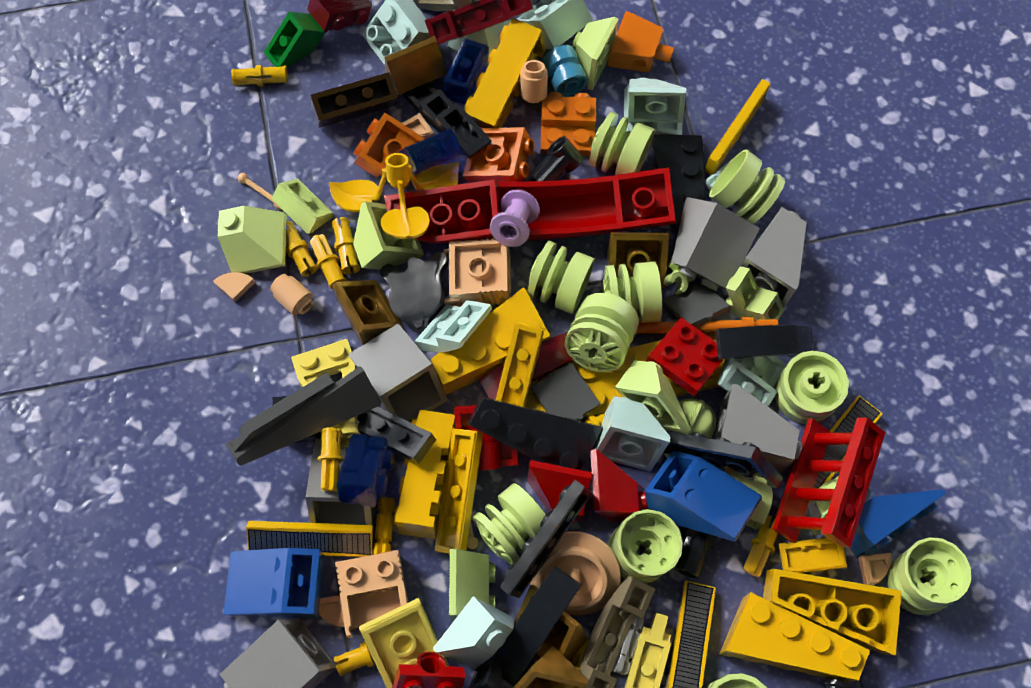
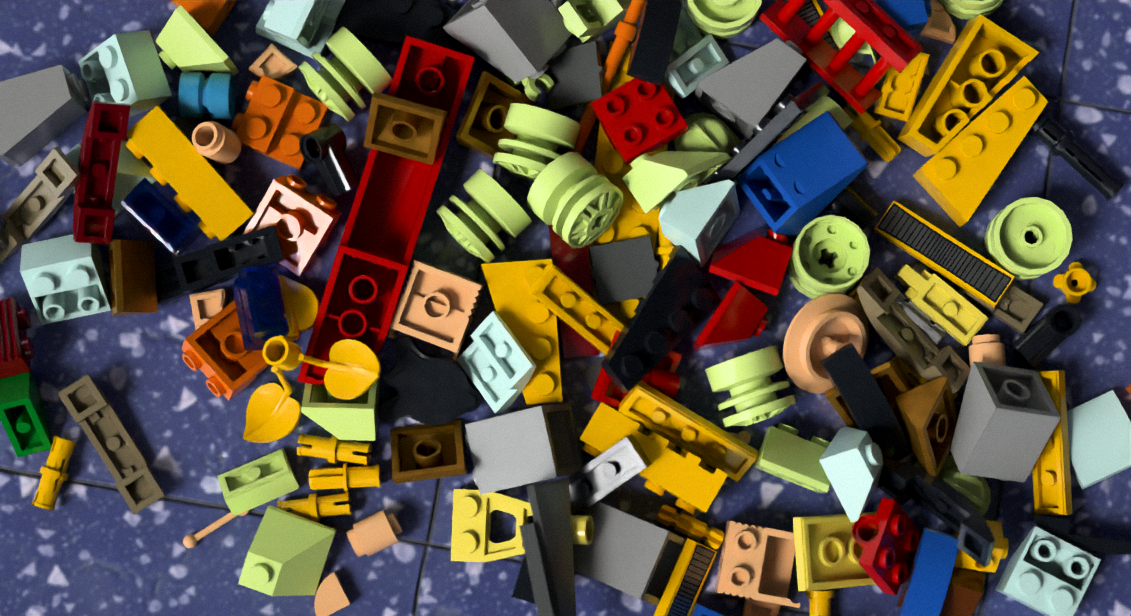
camera: 65 degrees left, 15 degrees up
(295, 105) = (113, 443): none -> dark tan slope
(330, 458) = (610, 557): yellow axle -> none
(353, 99) = (145, 370): dark brown brick -> none
(364, 470) = (637, 525): clear blue brick -> none
(512, 224) = (409, 249): lavender hose -> none
(540, 547) = (794, 373): black plate -> none
(600, 191) = (404, 128): none -> pearl gold slope
(606, 104) = (273, 64): none -> light nougat tile

